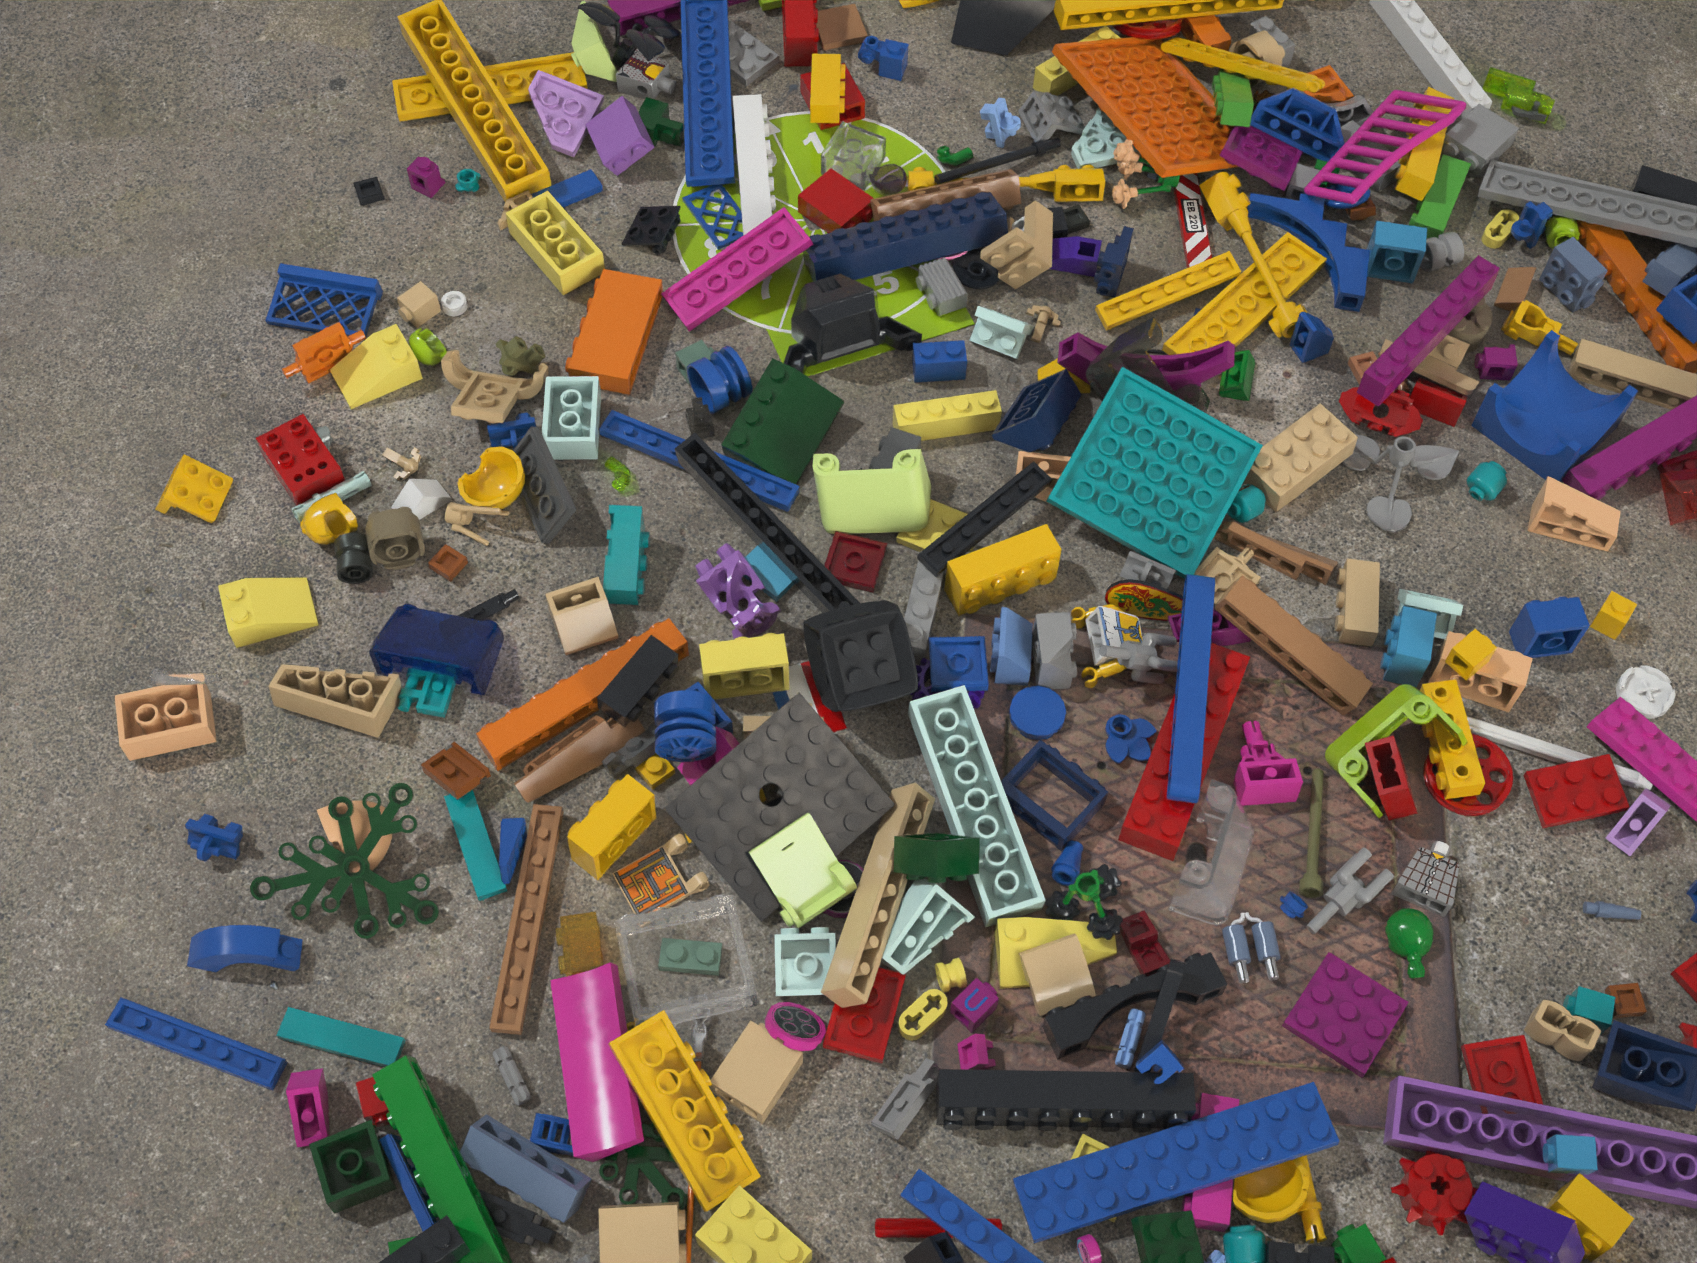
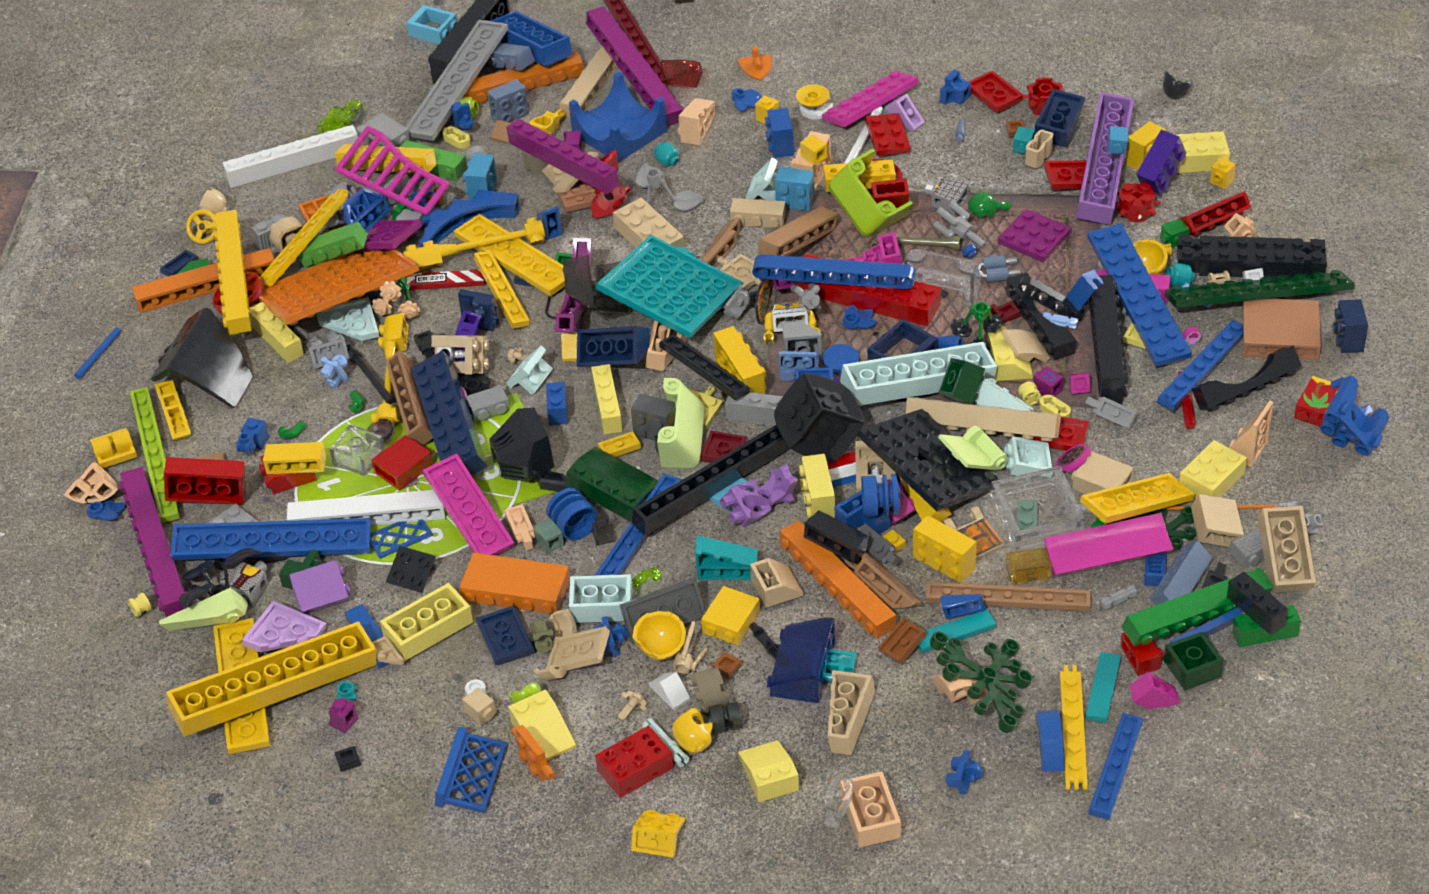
camera: 85 degrees left, 15 degrees down
(275, 990) = (1073, 728): none -> yellow hinge
(531, 565) = (730, 615): none -> yellow brick
(536, 322) = (504, 635): none -> dark blue plate
(721, 332) = (520, 525): none -> light nougat hinge
(859, 436) = (621, 444): none -> yellow plate
(901, 99) = (291, 433): none -> green arm
(1645, 592) = (745, 98): none -> blue plate
(1658, 669) = (812, 95): none -> yellow dish

